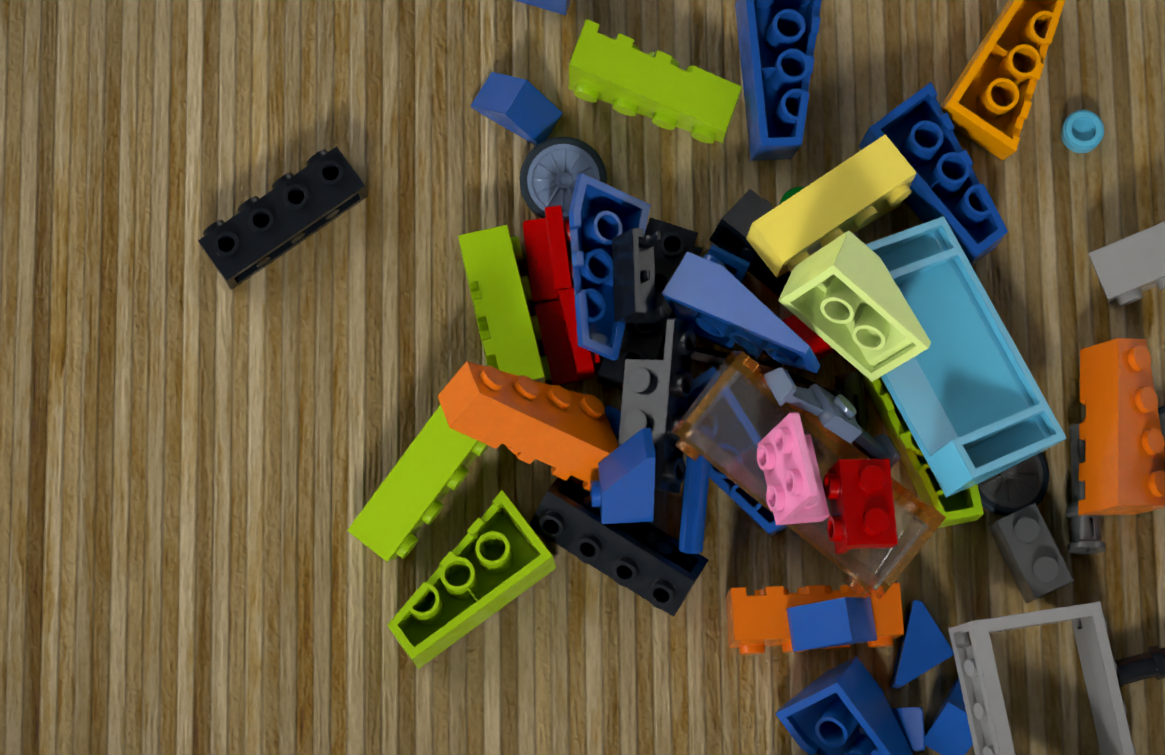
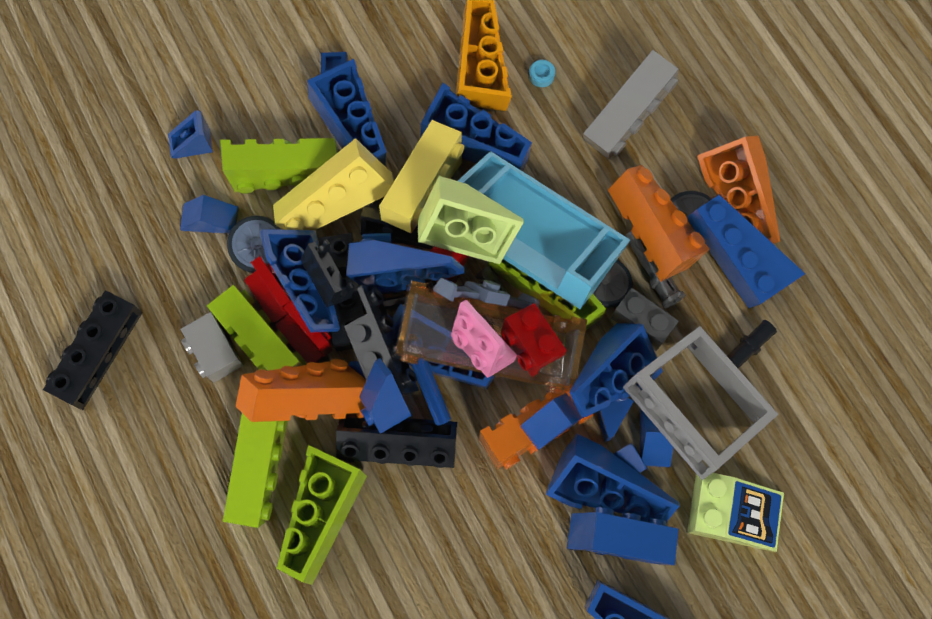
camera: 25 degrees left, 5 degrees down
(436, 293) = (211, 348): none -> light grey brick
(704, 164) = (334, 190): none -> light yellow wedge
(954, 590) = (611, 365): none -> blue wedge

